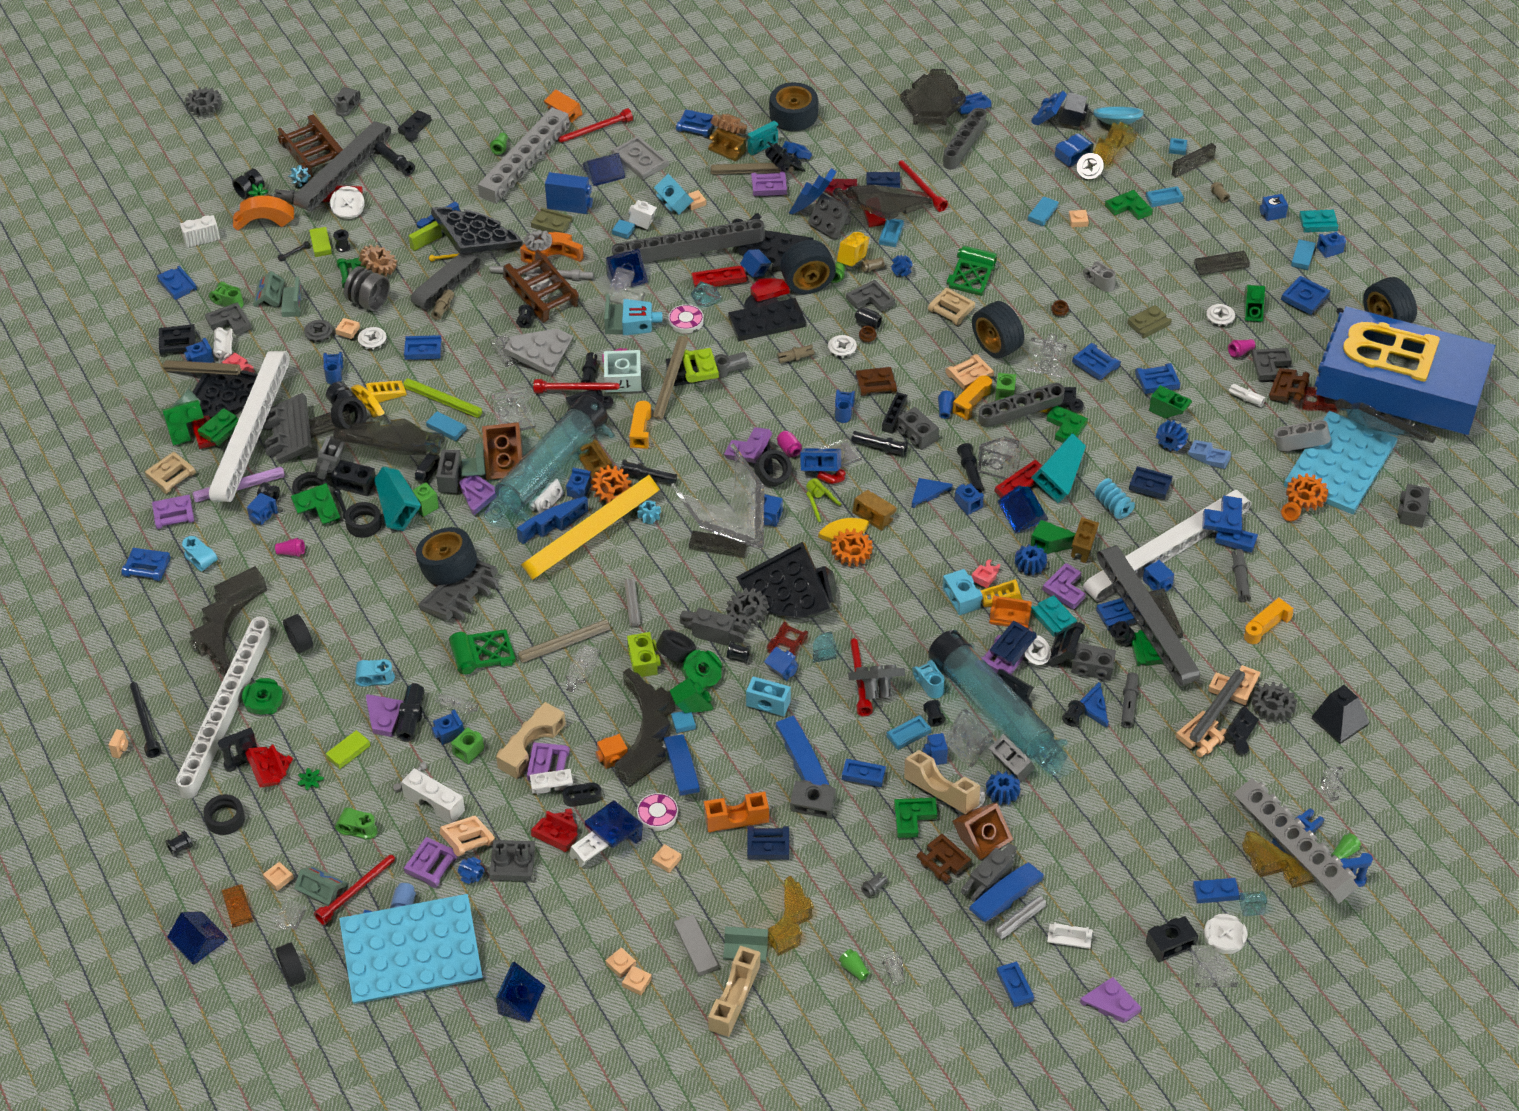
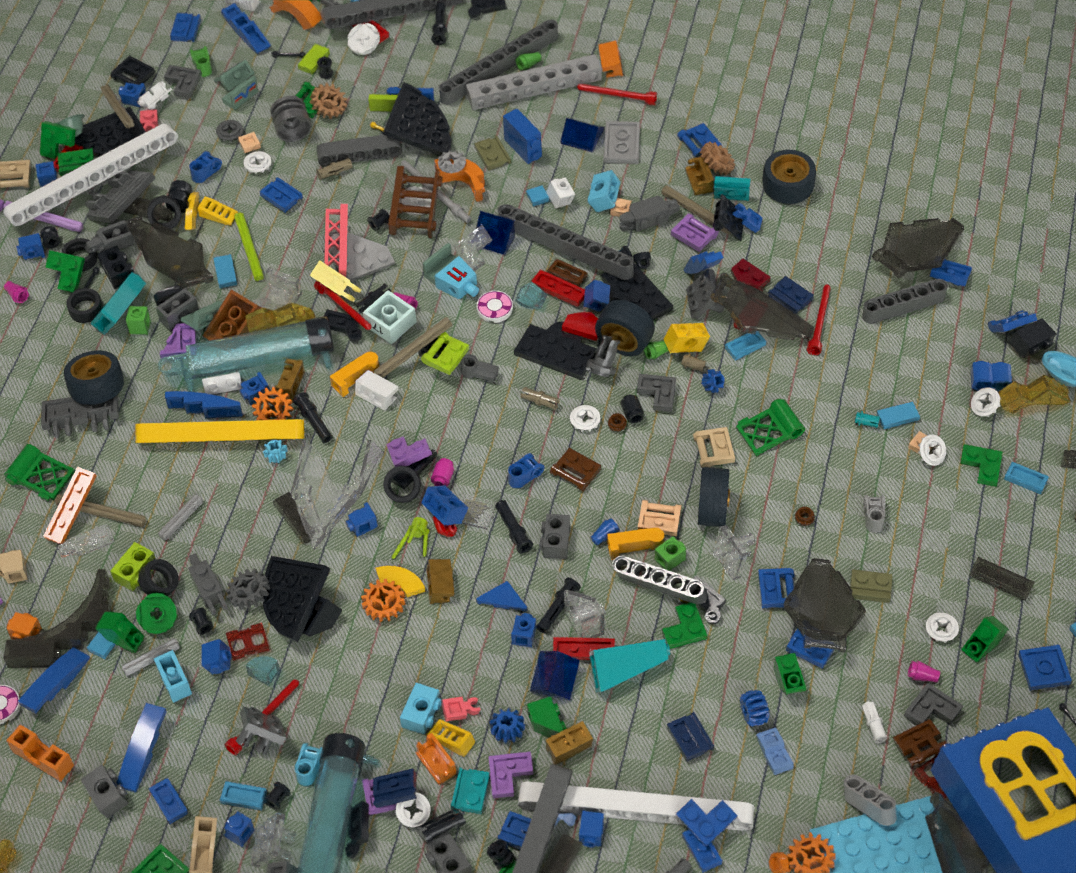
camera: 45 degrees right, 5 degrees up
(208, 451) = (46, 173): none -> blue brick
(235, 254) = (246, 29): none -> blue slope
(478, 157) = (498, 61): none -> dark grey beam
(528, 342) = (342, 247): none -> coral fence
(542, 423) = (285, 315): none -> clear yellow arch
(543, 650) = (70, 505): none -> plate
(550, 372) = (333, 280): none -> light yellow hinge
(671, 425) = (376, 390): none -> white hinge
(710, 263) = (566, 273): none -> reddish brown tile
(722, 190) = (648, 213): none -> dark grey hinge
(730, 701) = (148, 657): none -> light grey axle
(767, 847) = (33, 803): dark blue plate -> none
(817, 303) = (604, 358): none -> dark grey piece
(895, 410) = (560, 506): black piece -> none
(1024, 227) = (867, 419): none -> teal pin
(1092, 215) = (939, 450): none -> white gear
(1114, 499) = (638, 726): medium azure piece -> none
(1142, 348) = (823, 607): none -> clear smoke windscreen

